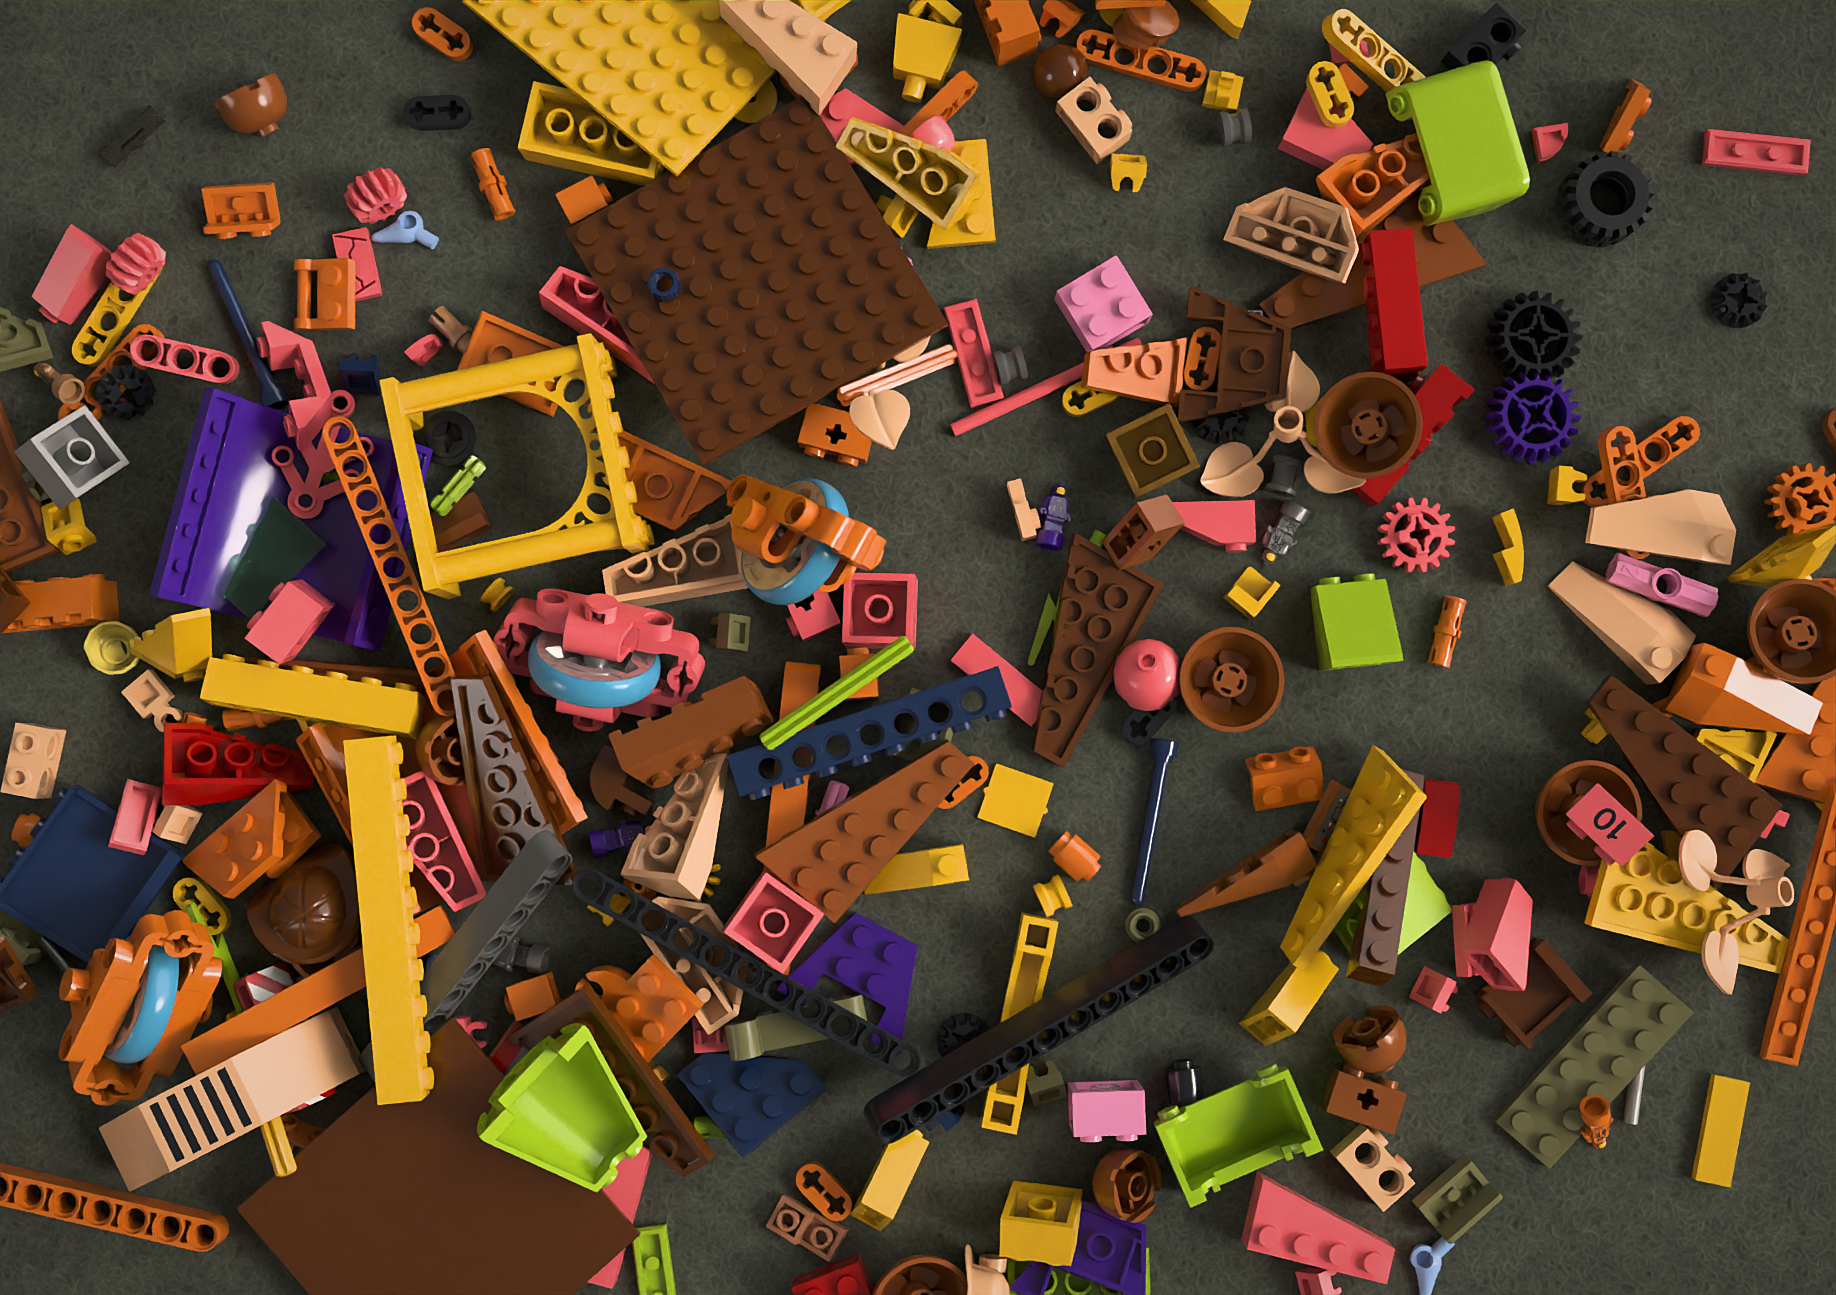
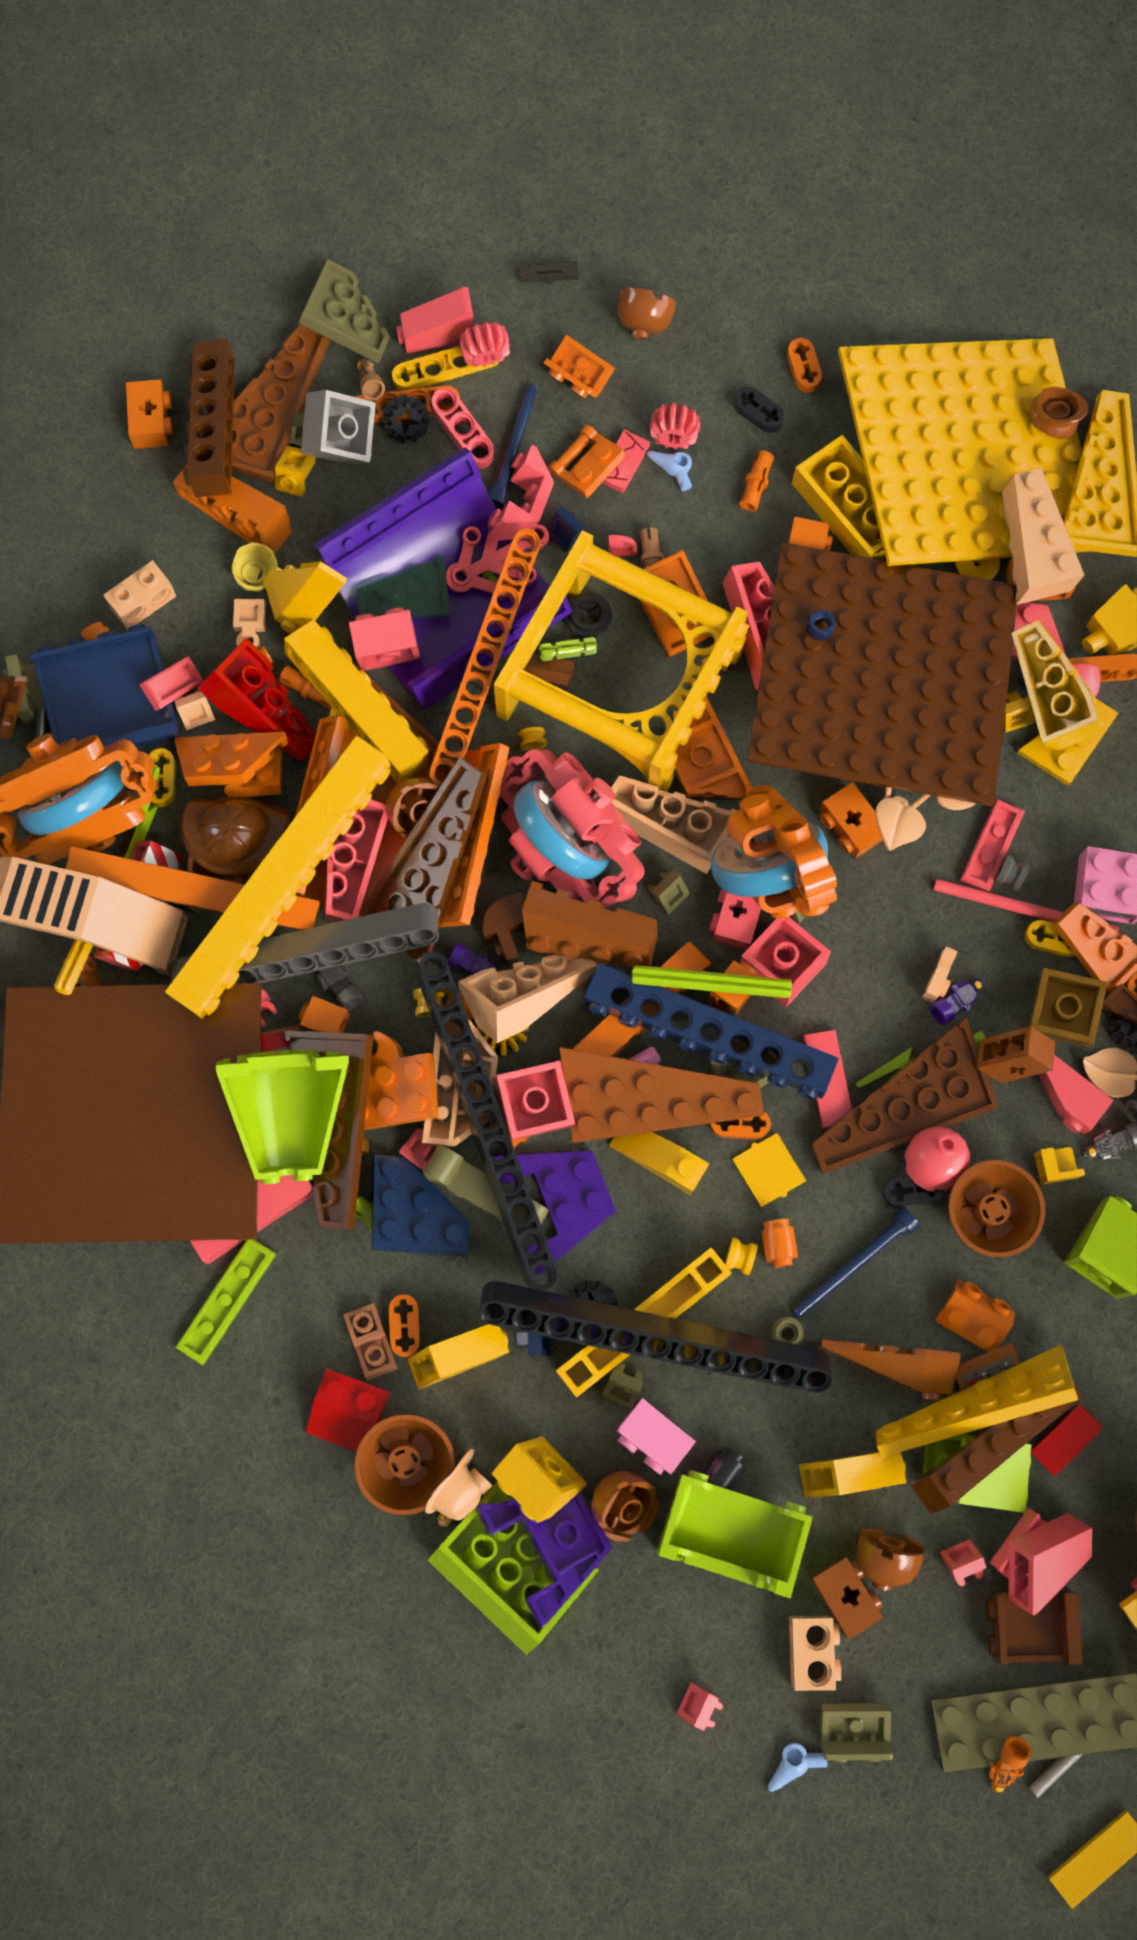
camera: 35 degrees right, 10 degrees down
(898, 374) = (933, 814): axle -> none
(1308, 1233) = (724, 1655): coral wedge -> none

